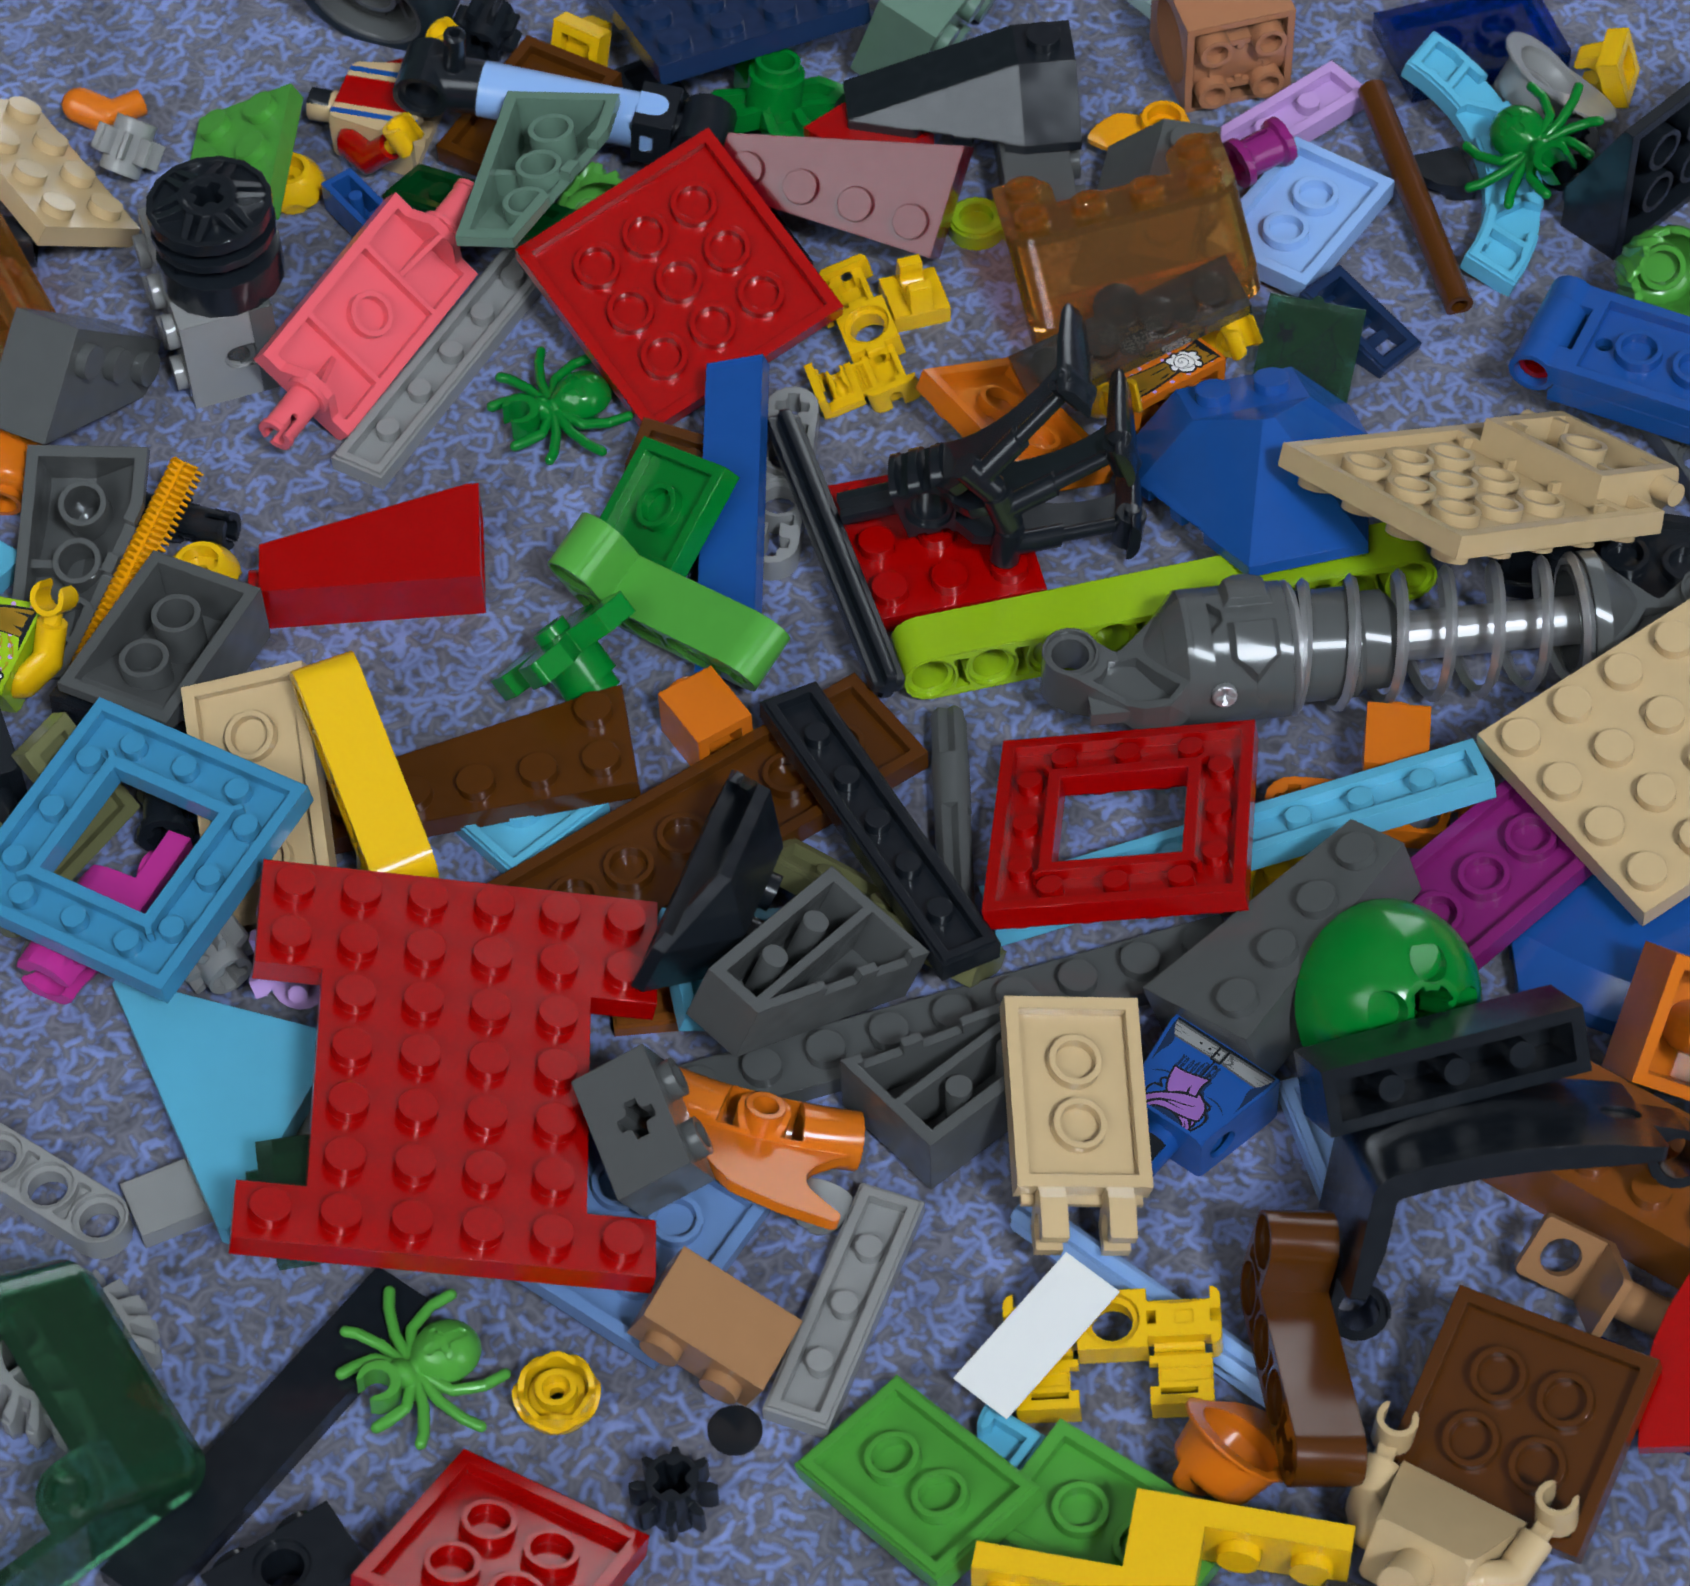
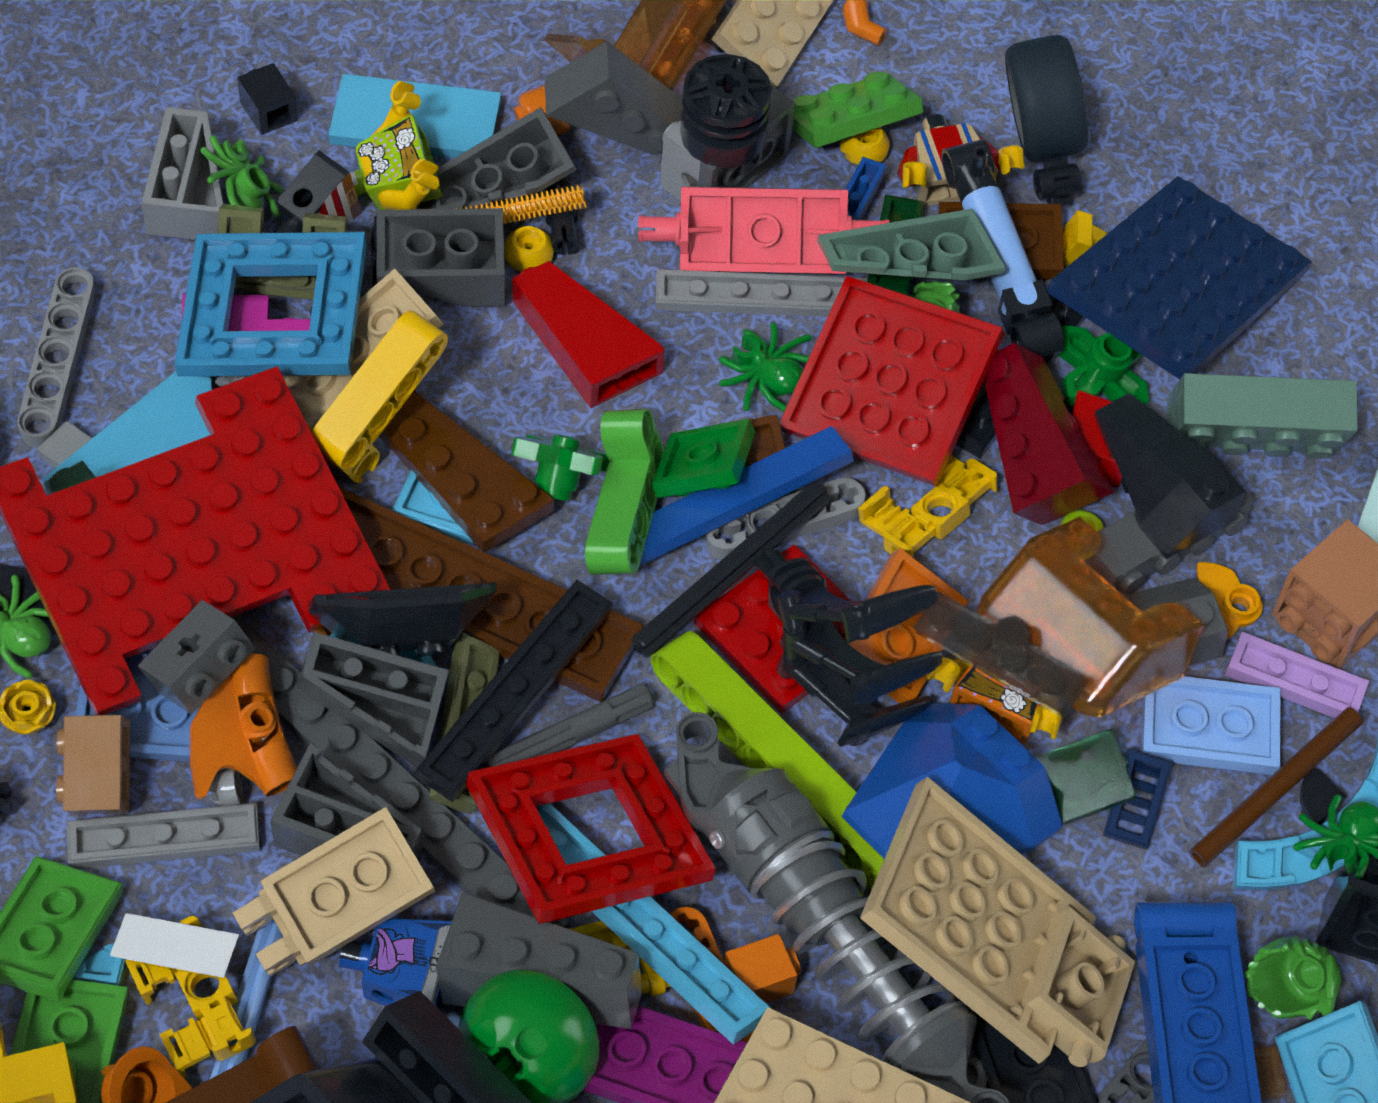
camera: 55 degrees right, 5 degrees up
(128, 146) = (832, 46): light grey gear -> none
(702, 715) = (559, 556): orange brick -> none
(735, 1430) = (51, 817): black piece -> none
(914, 295) = (990, 523): yellow tile -> none
(1261, 151) = (1235, 667): magenta bush -> none

